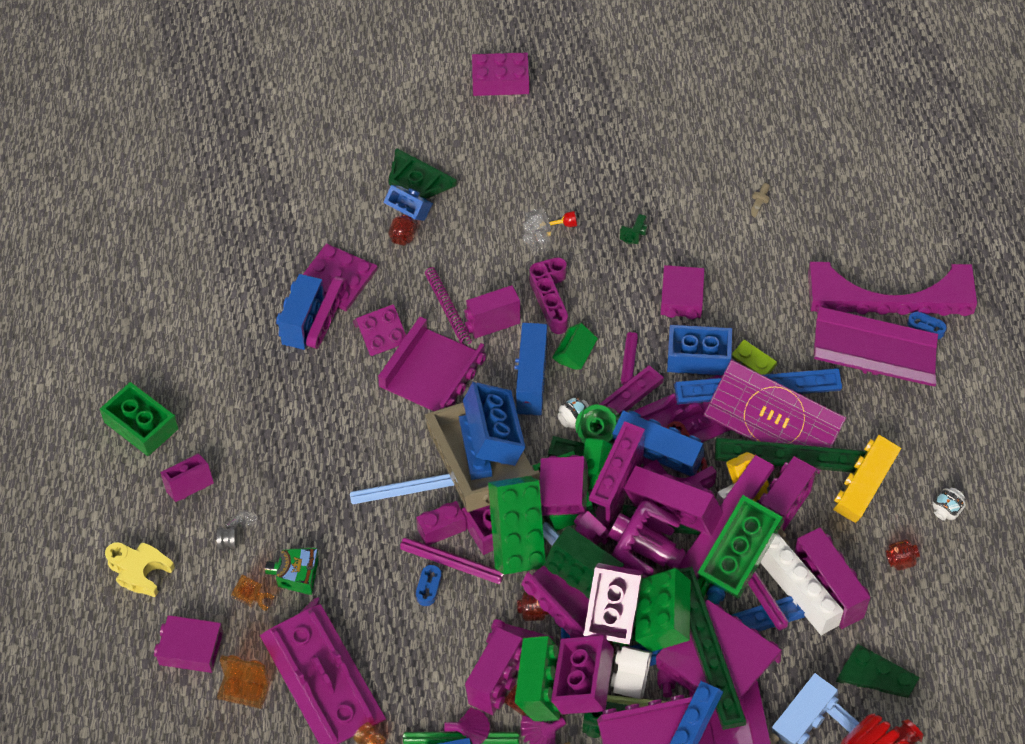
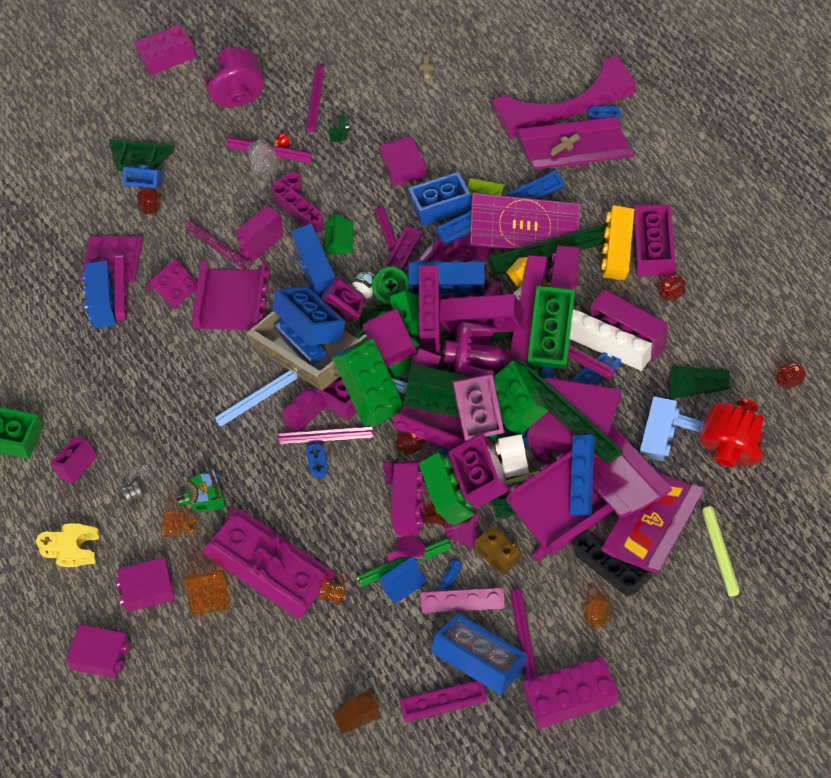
camera: 20 degrees left, 0 degrees up
(107, 694) = (98, 651): none -> magenta brick
(541, 420) = (343, 299): none -> magenta slope
(554, 136) = (238, 79): none -> magenta piece
(556, 227) = (279, 151): none -> magenta axle
(627, 186) = (315, 99): none -> magenta axle
(864, 343) = (566, 143): none -> dark tan piece
(907, 492) = (654, 240): none -> magenta brick
(949, 504) = (688, 237): head -> none
(985, 712) = (790, 375): none -> clear red head

